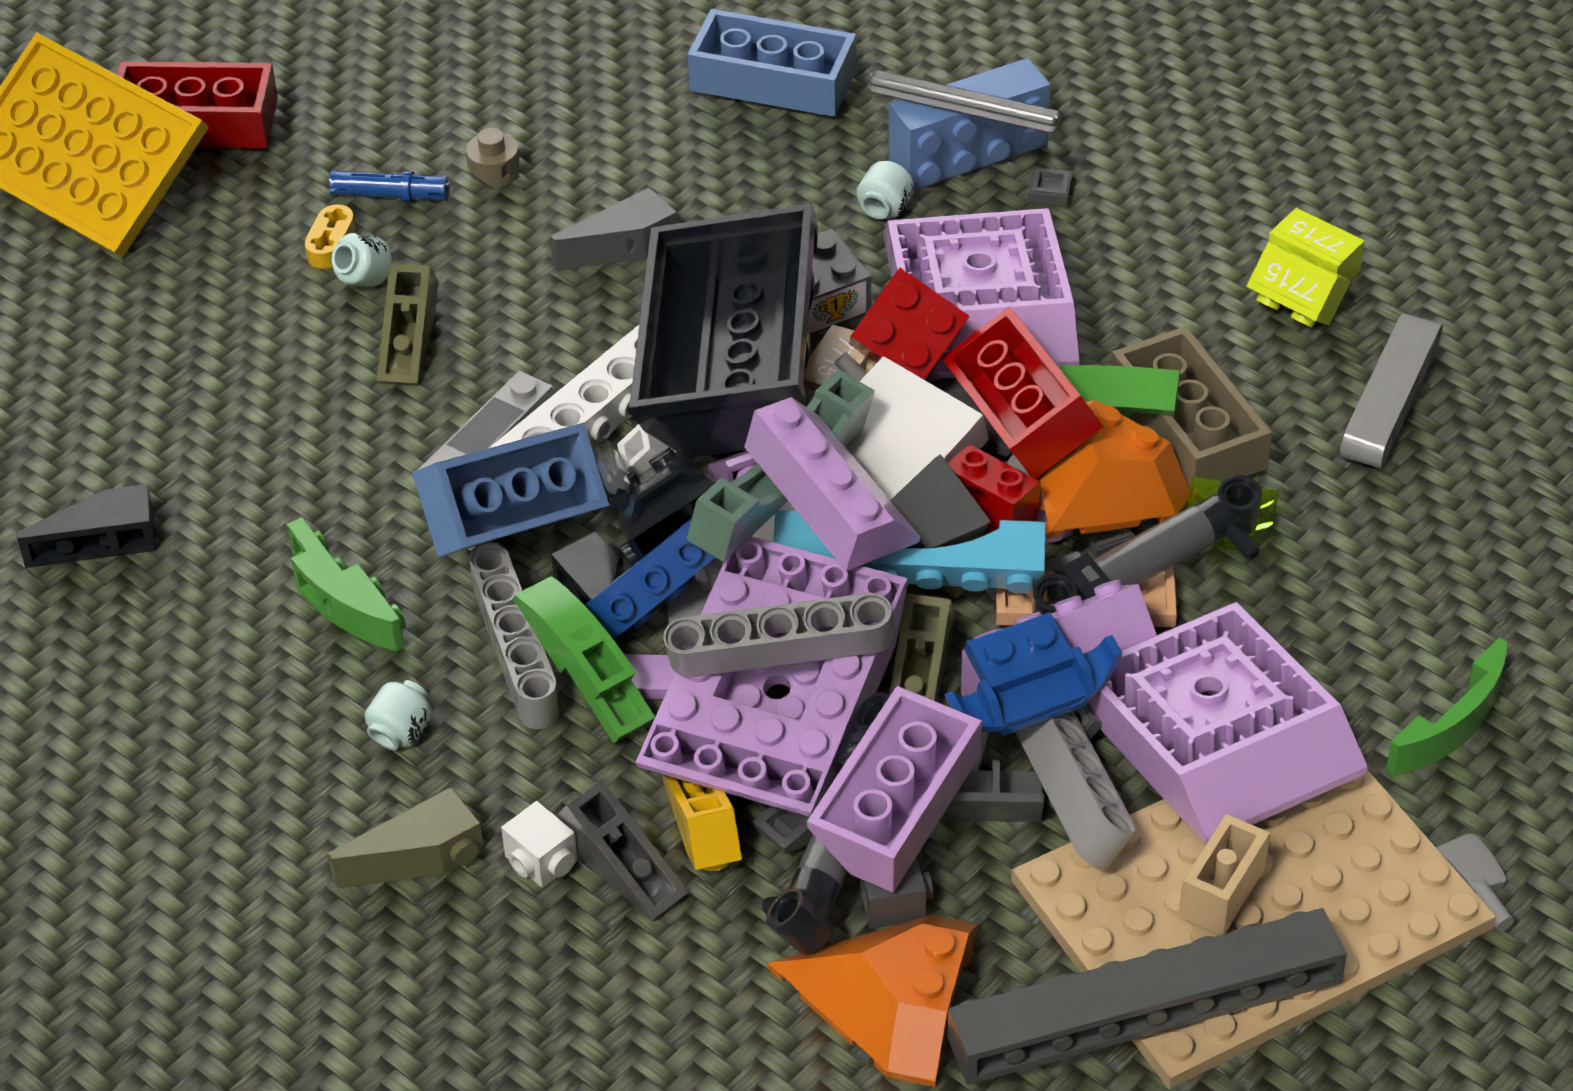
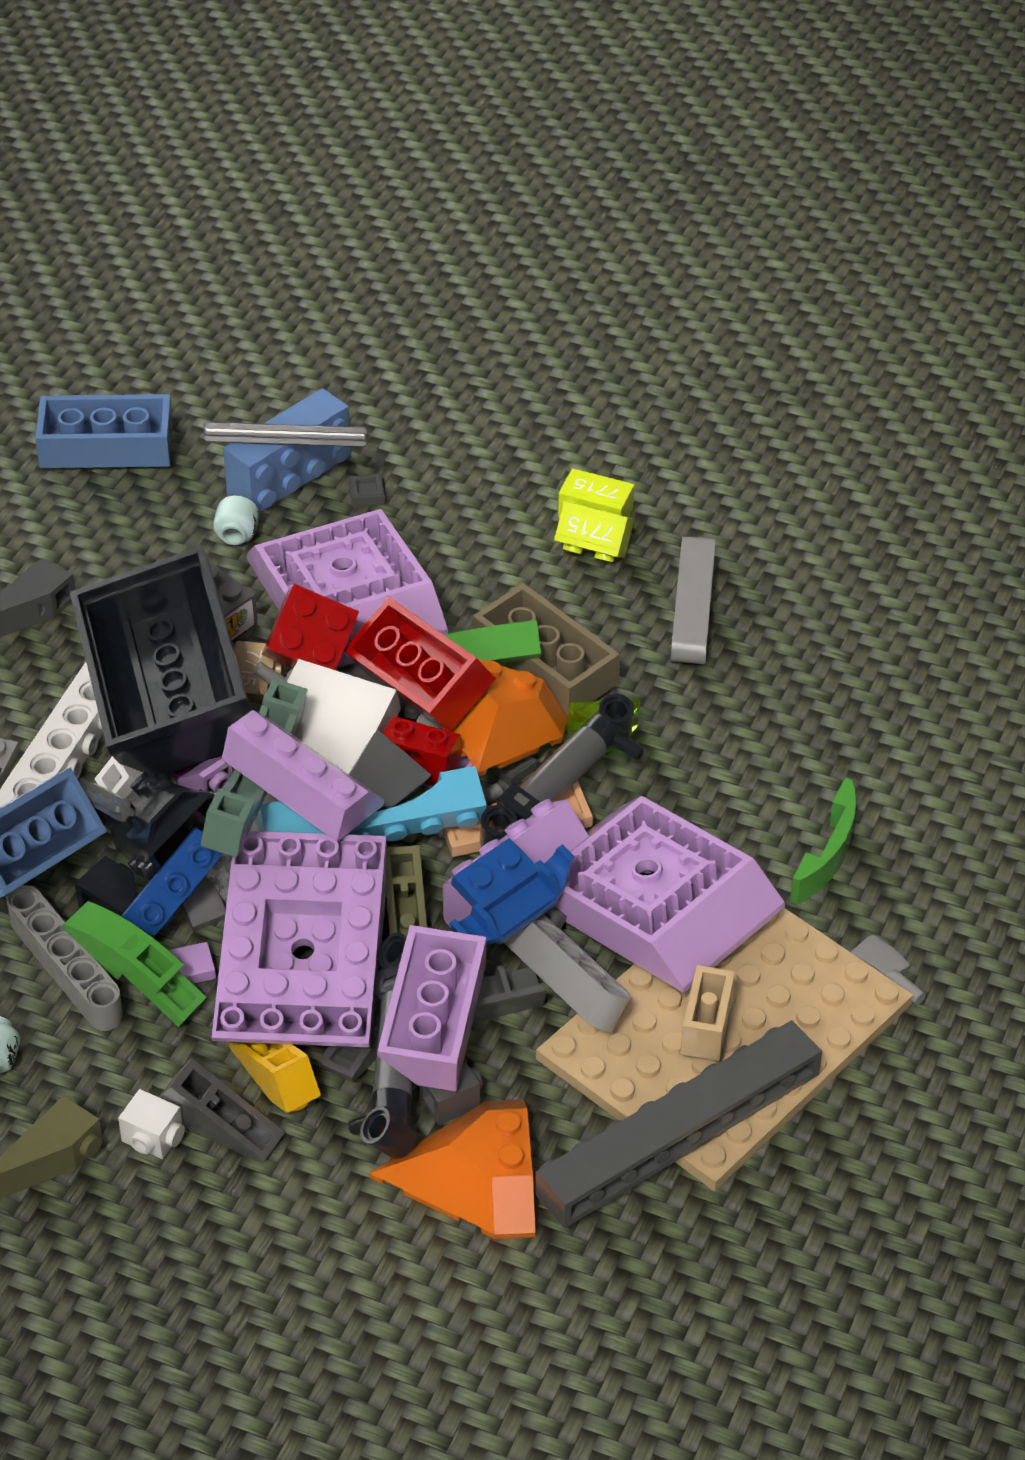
camera: 20 degrees left, 0 degrees up
(800, 645) = (291, 921): light grey beam -> none

